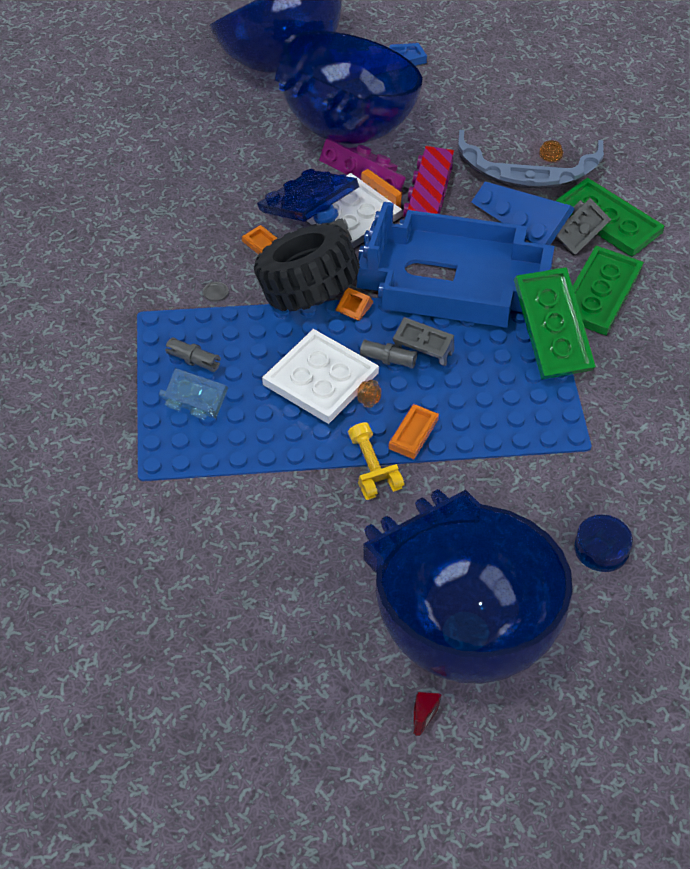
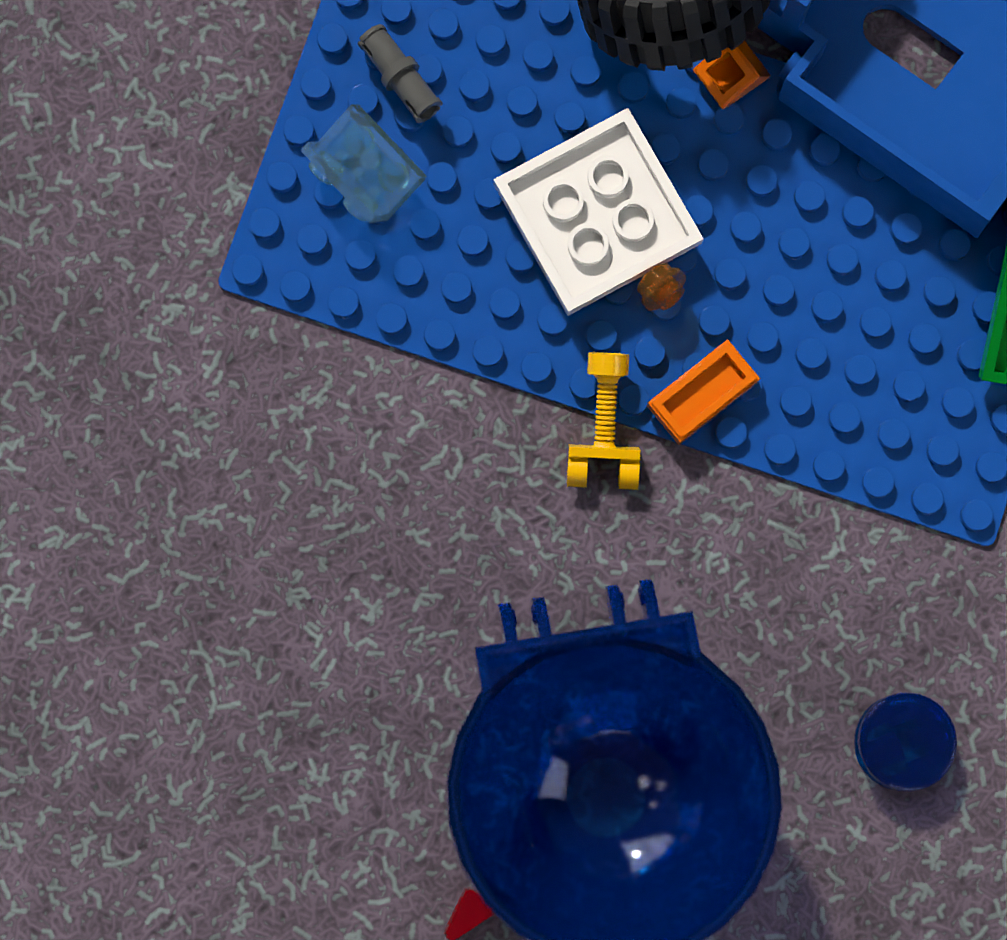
camera: 25 degrees right, 30 degrees up
(388, 353) = (736, 213): dark grey pin -> none
(424, 339) = (806, 219): dark grey hinge -> none

